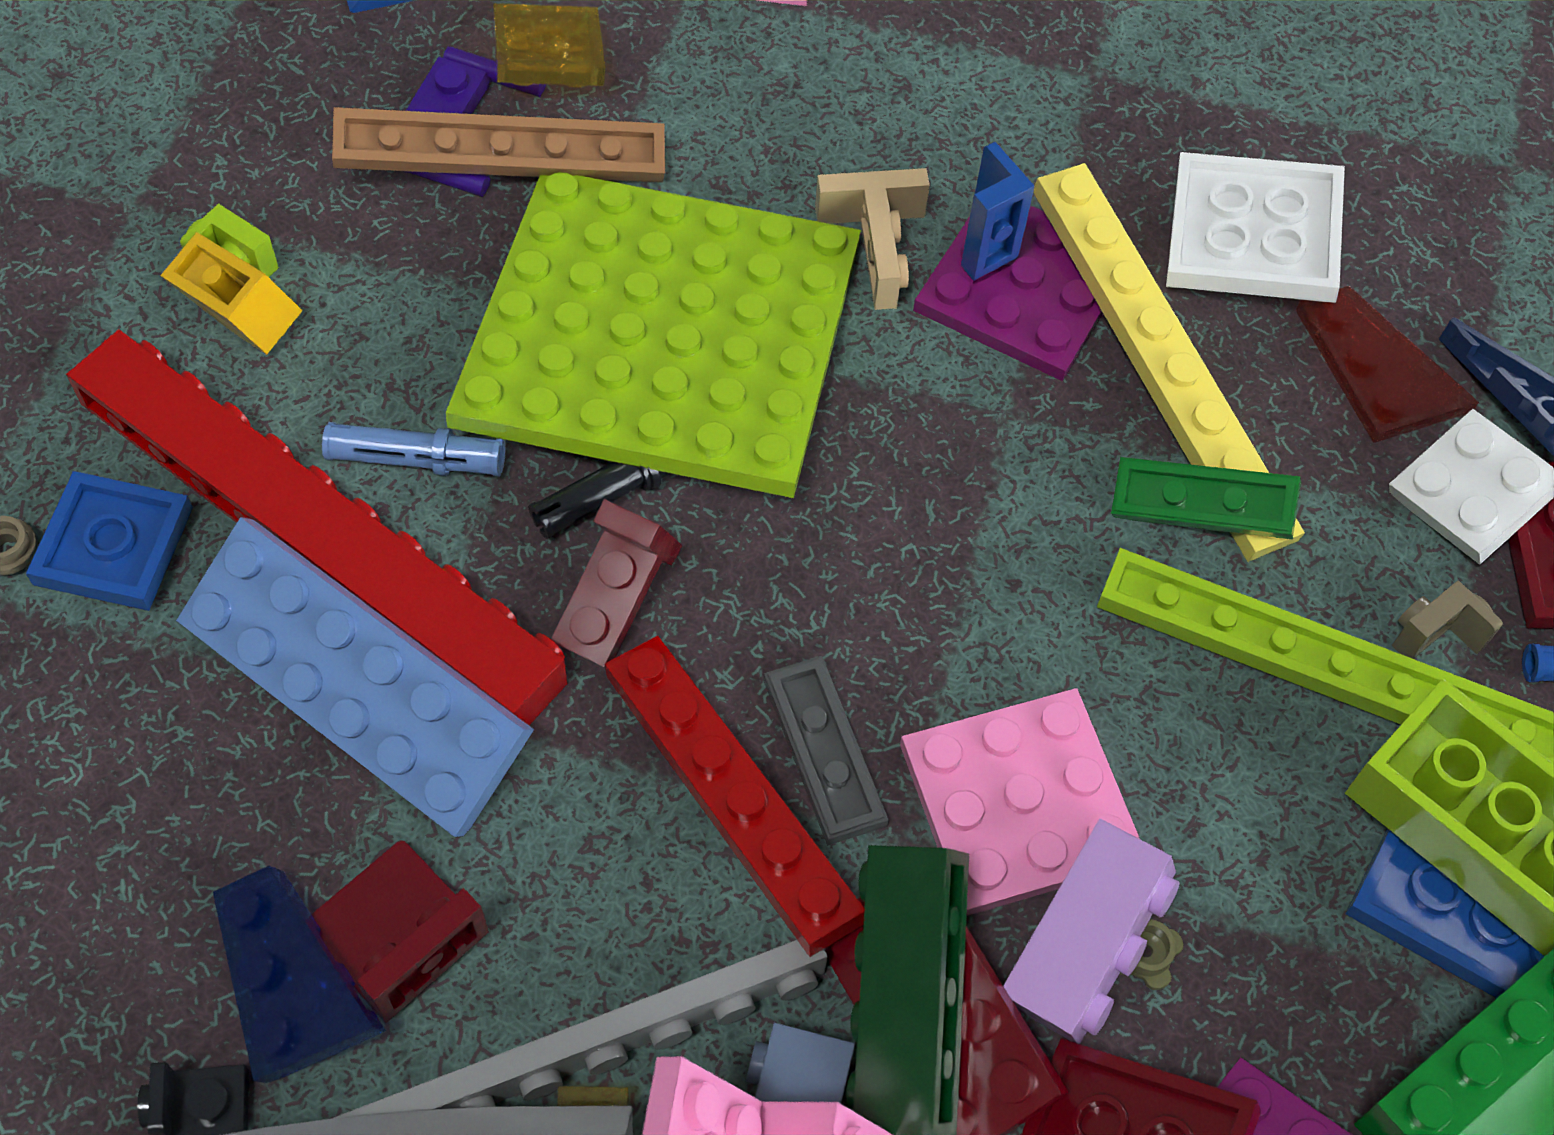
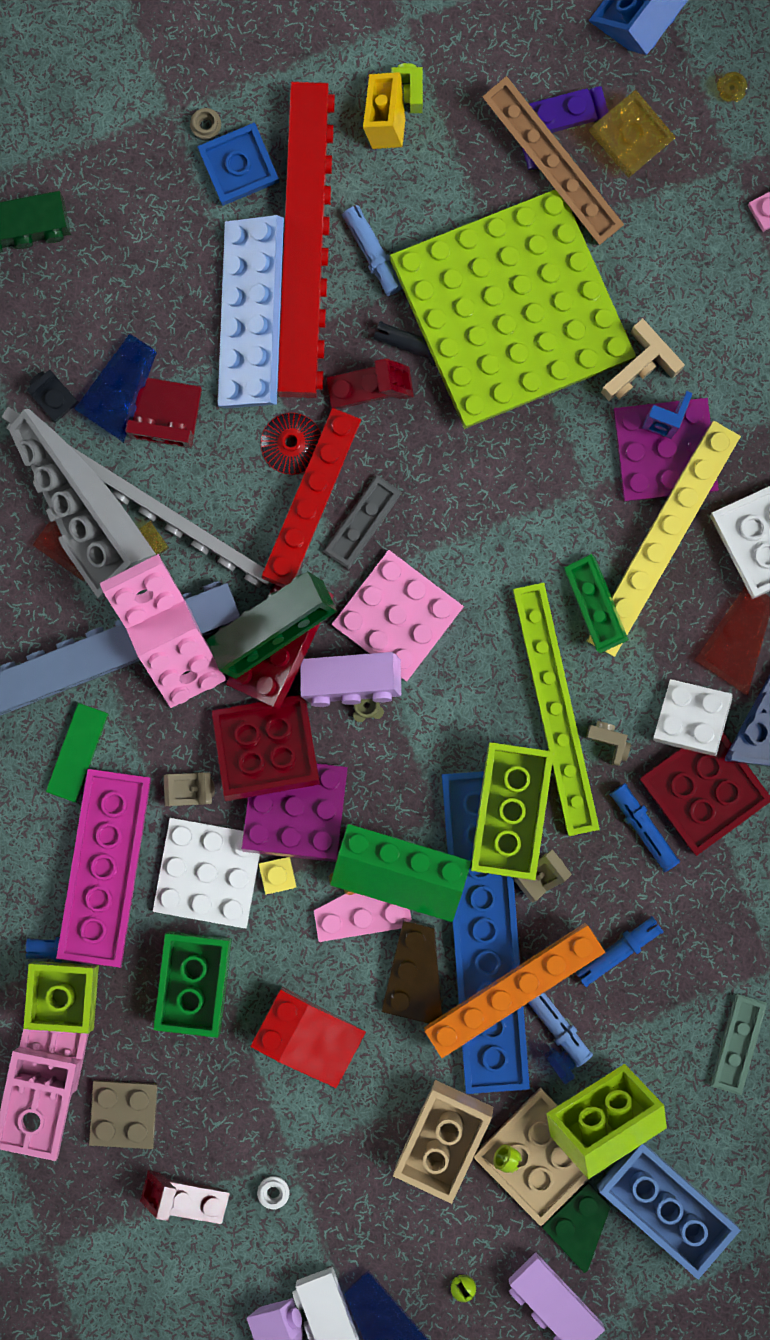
camera: 65 degrees right, 25 degrees up
(602, 796) = (284, 458): none -> dish

